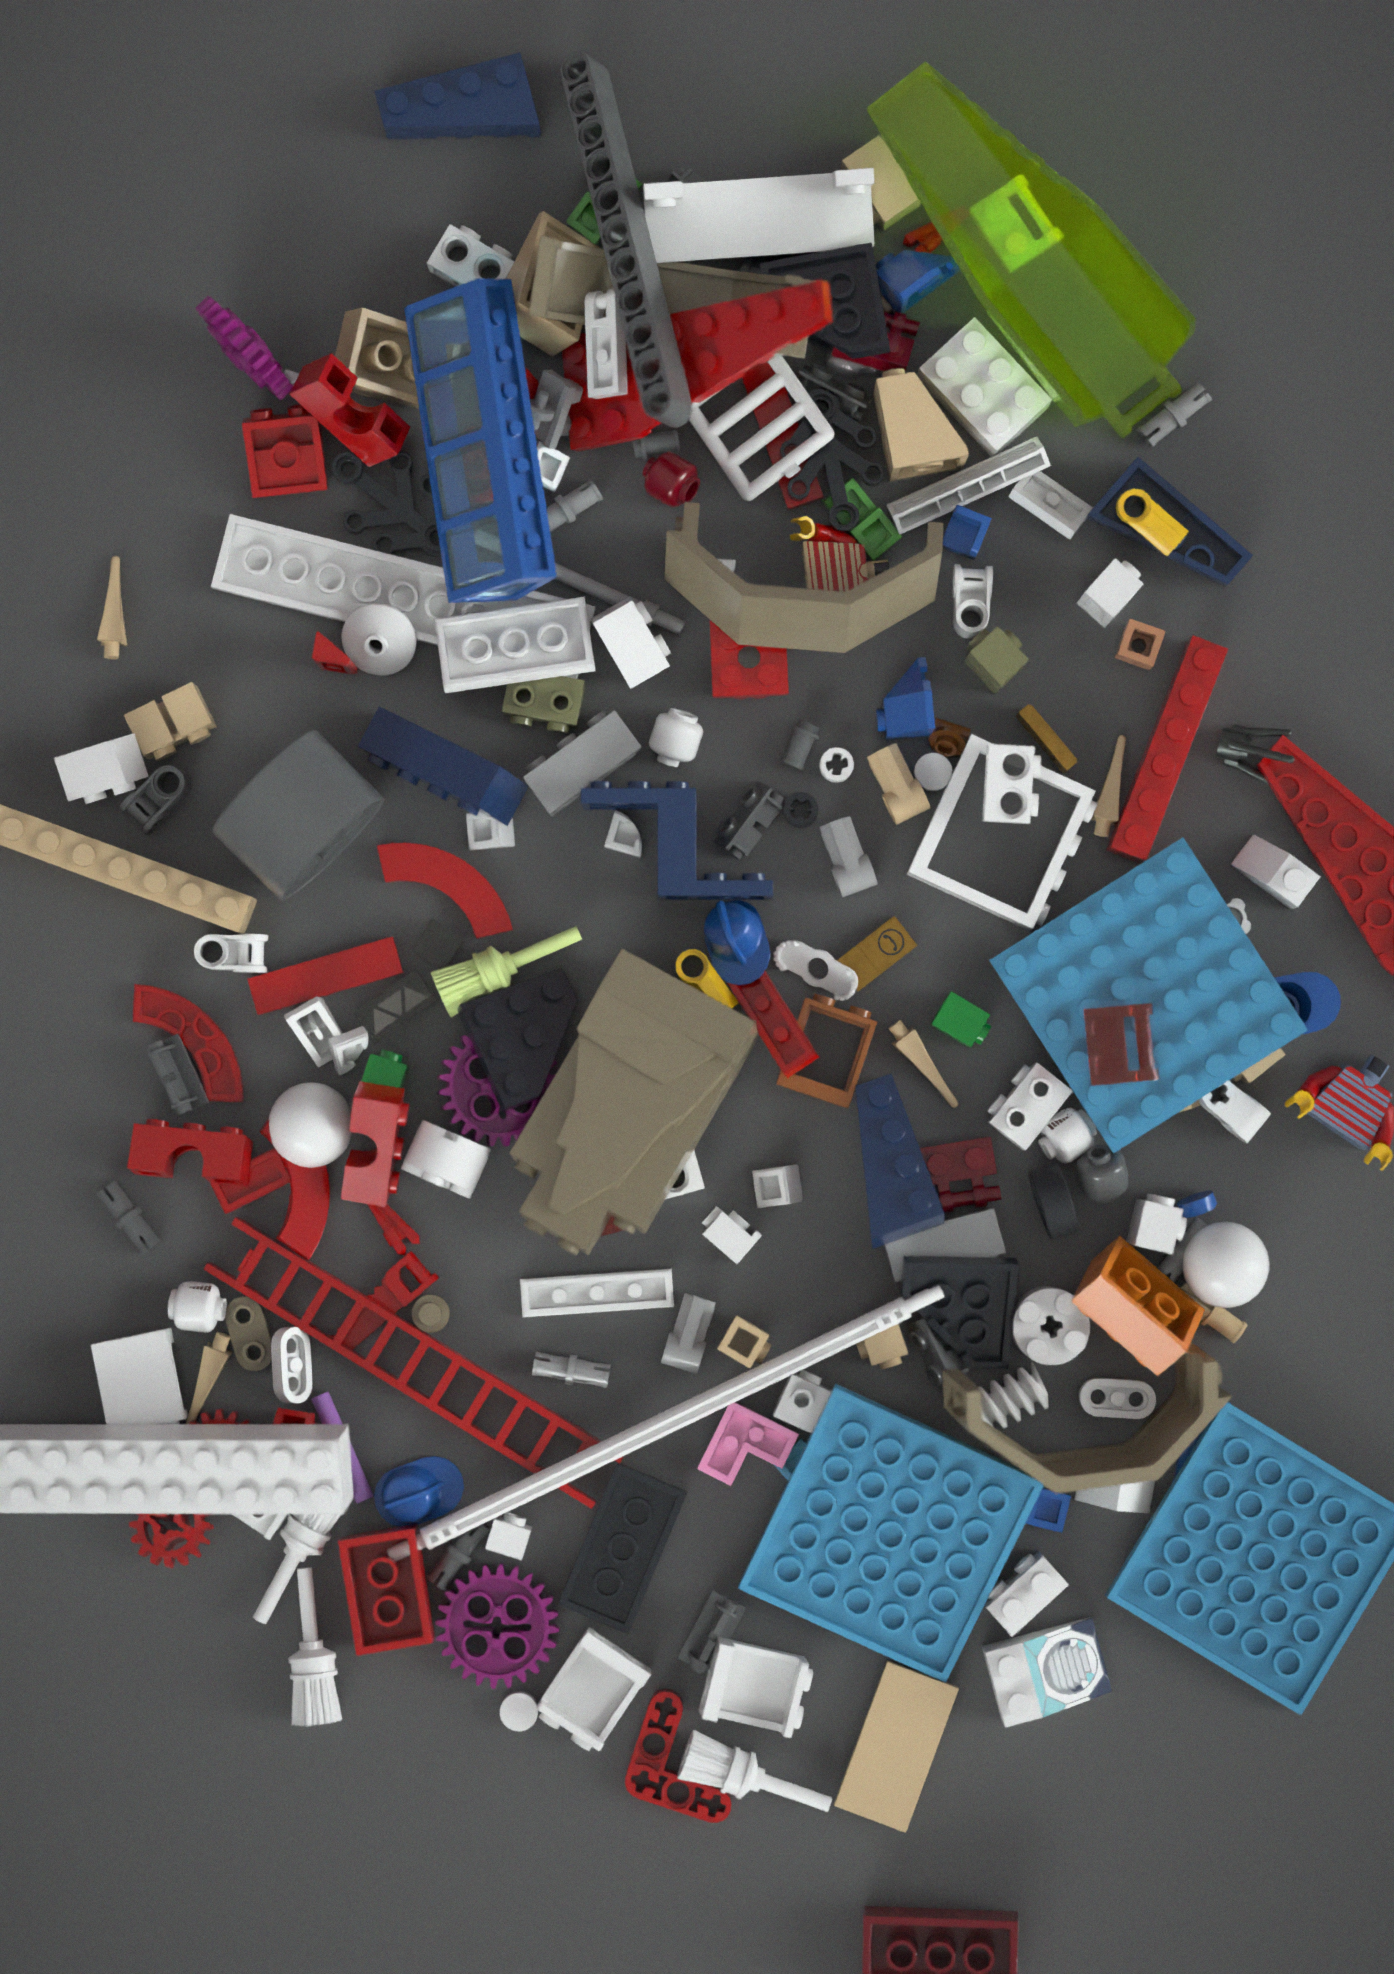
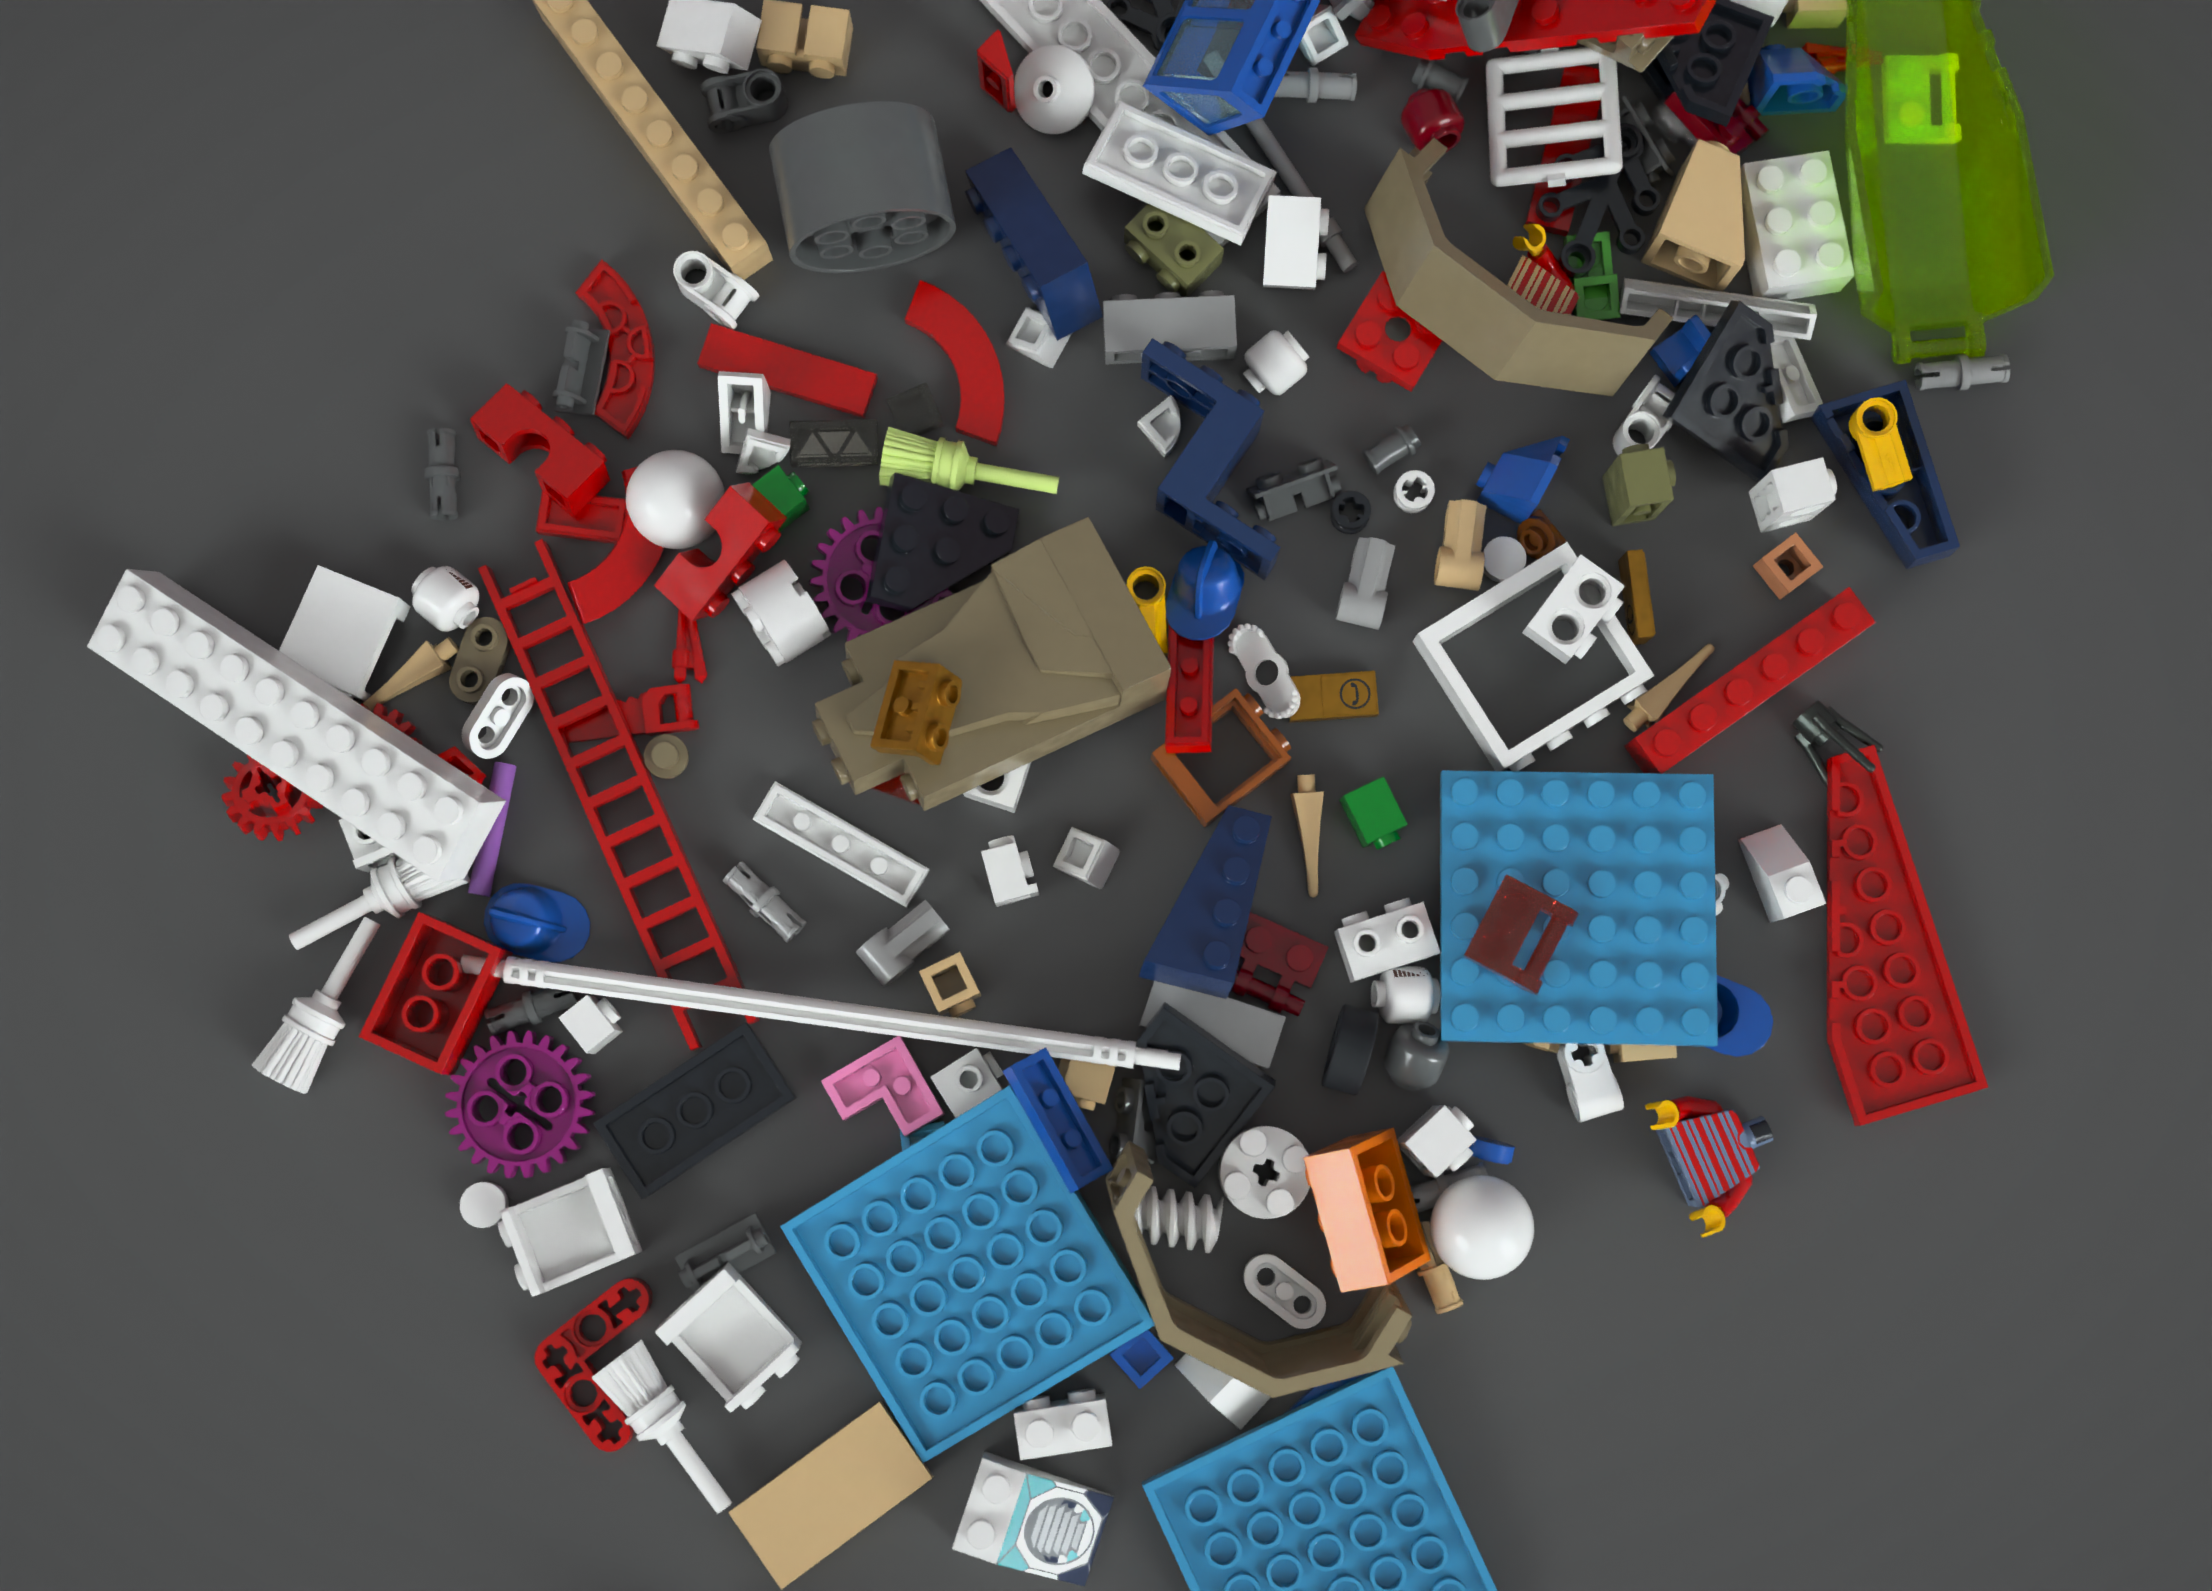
camera: 30 degrees right, 5 degrees down
(598, 1172) = (917, 711): none -> pearl gold bracket
(884, 1388) = (1058, 1120): none -> blue plate
(1023, 546) = (1735, 394): none -> black plate

